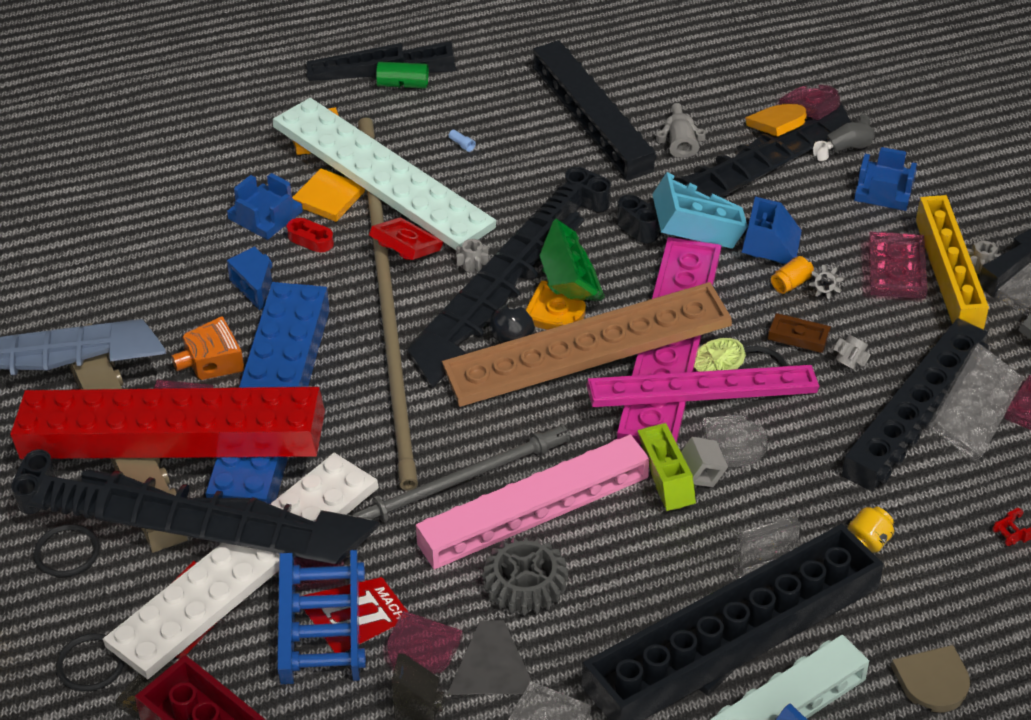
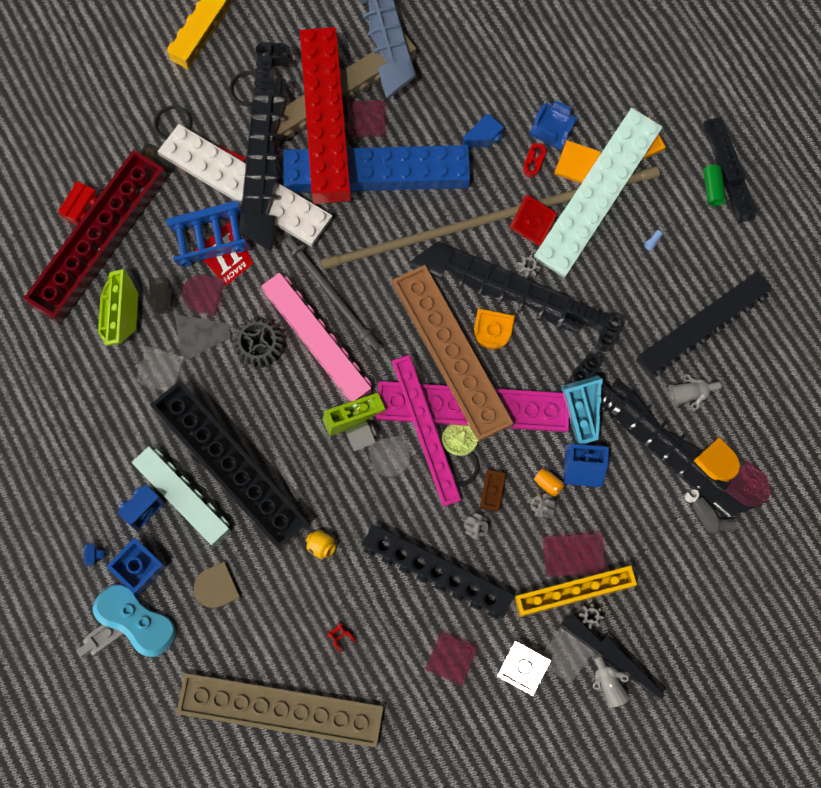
camera: 80 degrees right, 30 degrees up
(210, 351) = (412, 124): orange torso -> none
(511, 324) = (456, 301): black hair -> none
(568, 265) = (519, 332): green wedge -> none
(886, 181) = (664, 544): blue panel -> none
(976, 402) = (440, 610): clear plate -> none

